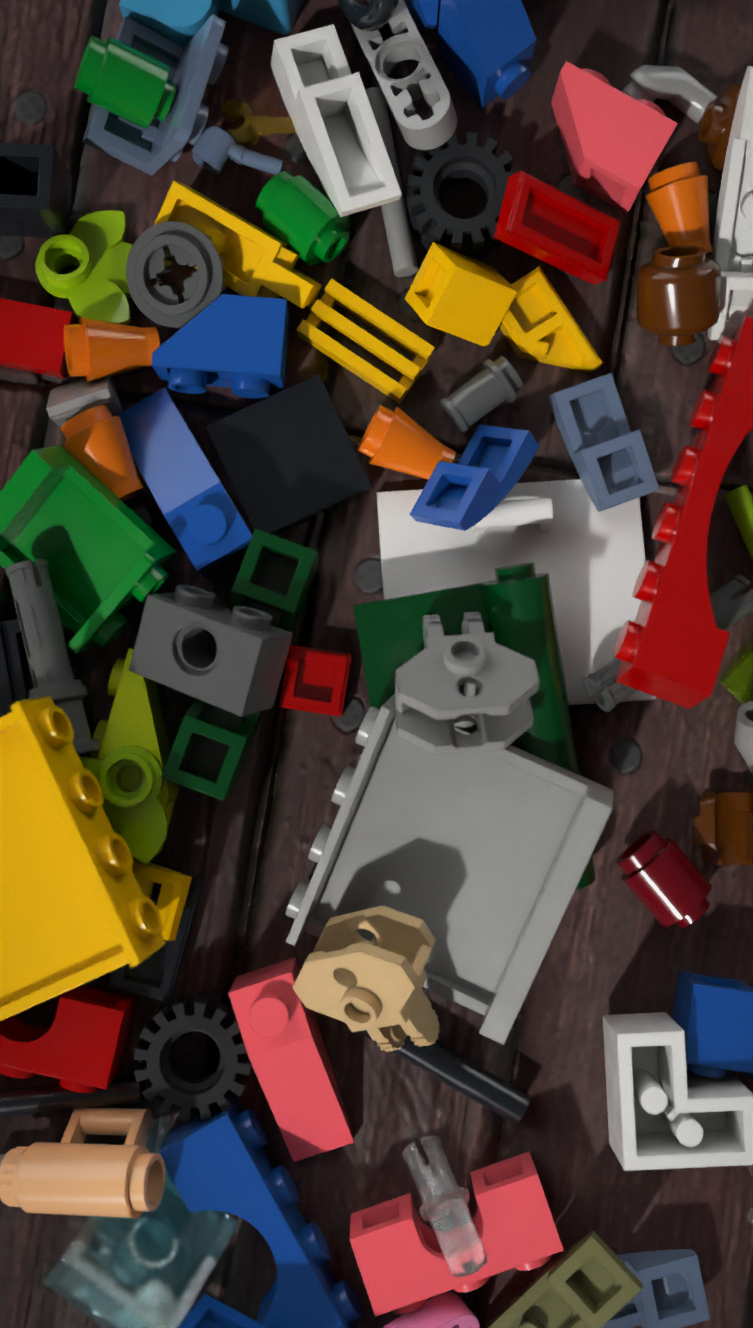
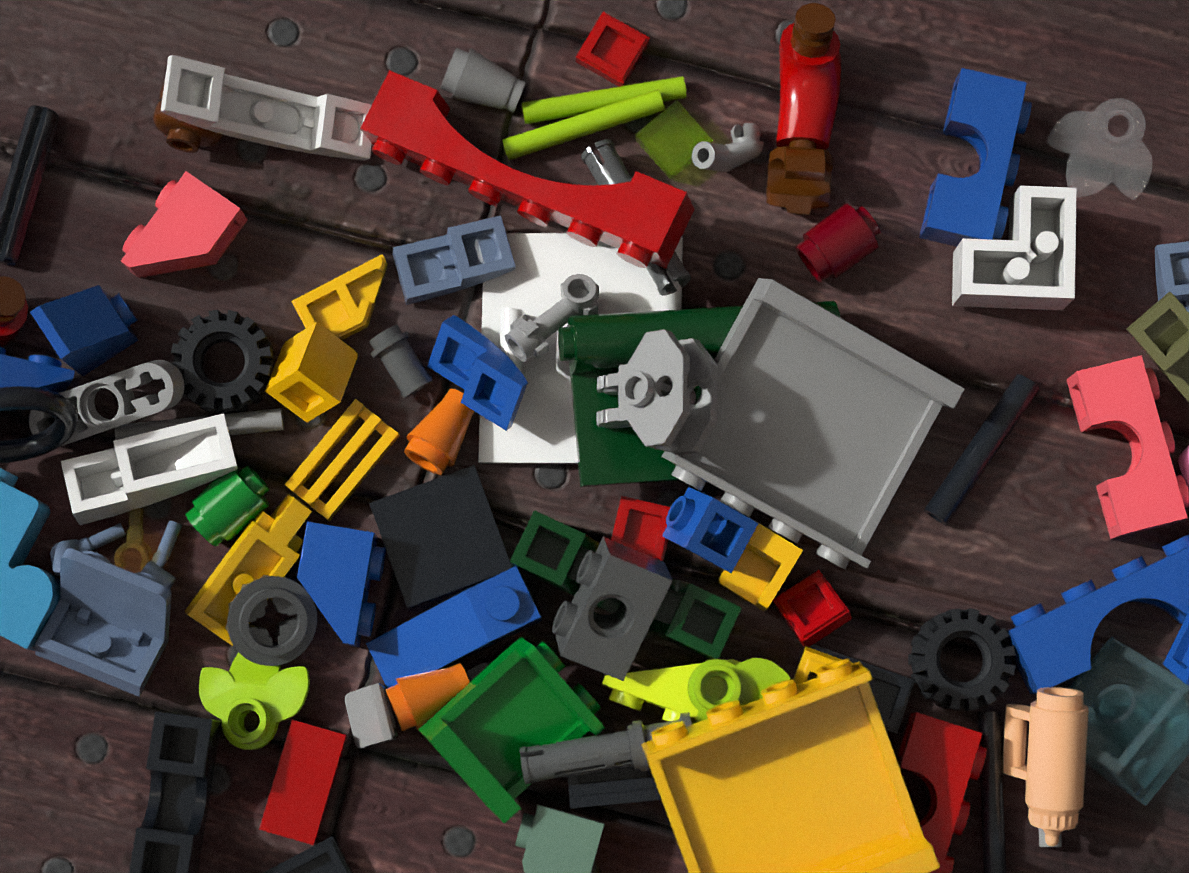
camera: 85 degrees left, 5 degrees down
(107, 348) = (330, 690): orange cone -> none
(125, 81) = (101, 646): green brick -> none
(240, 58) = (85, 544): none -> sand blue hand
(240, 880) = (812, 609): none -> red tile
(282, 817) = (761, 568): none -> yellow panel
(290, 1060) = (971, 575): coral slope -> none
(314, 755) = (709, 528): none -> blue brick
(373, 981) = (902, 494): tan hinge -> none
(445, 1207) = (1099, 452): clear axle -> none
(557, 228) = (263, 282): red tile -> none
(570, 584) = (529, 337): none -> light grey bar
(673, 85) = (138, 174): light grey arm -> none
(678, 294) = (332, 183): reddish brown head -> none
(682, 205) = (255, 172): orange cone -> none

